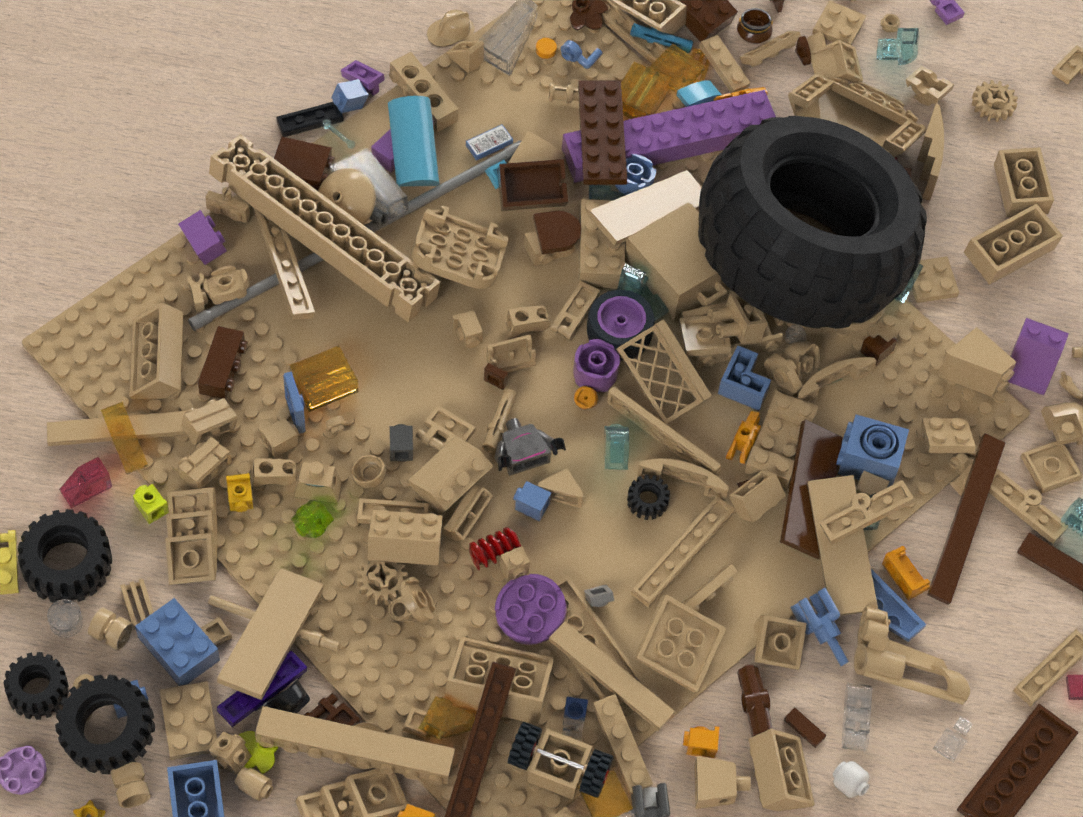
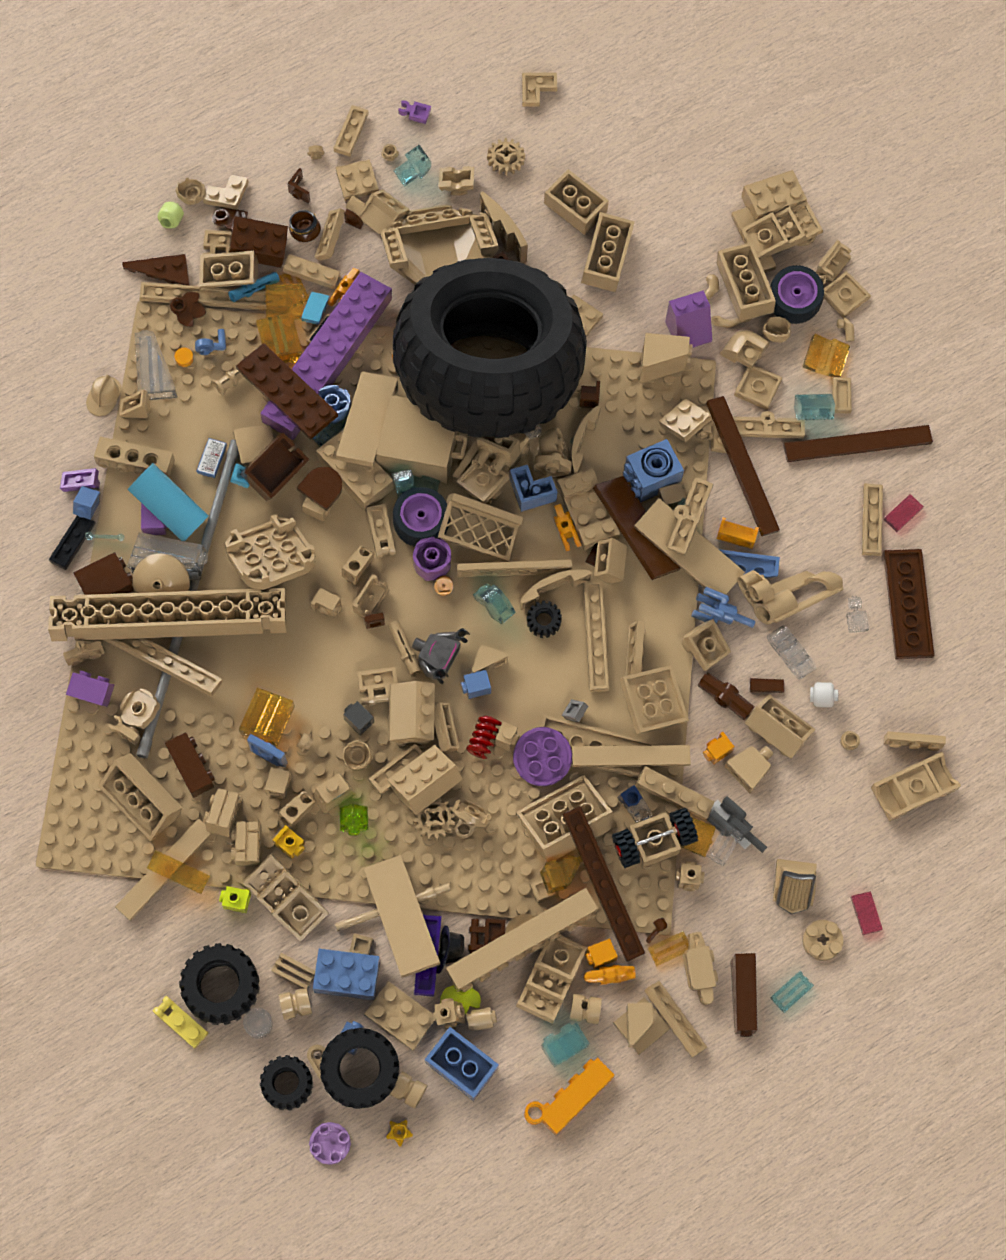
camera: 40 degrees left, 10 degrees up
(86, 482) = (180, 923): clear pink slope -> none

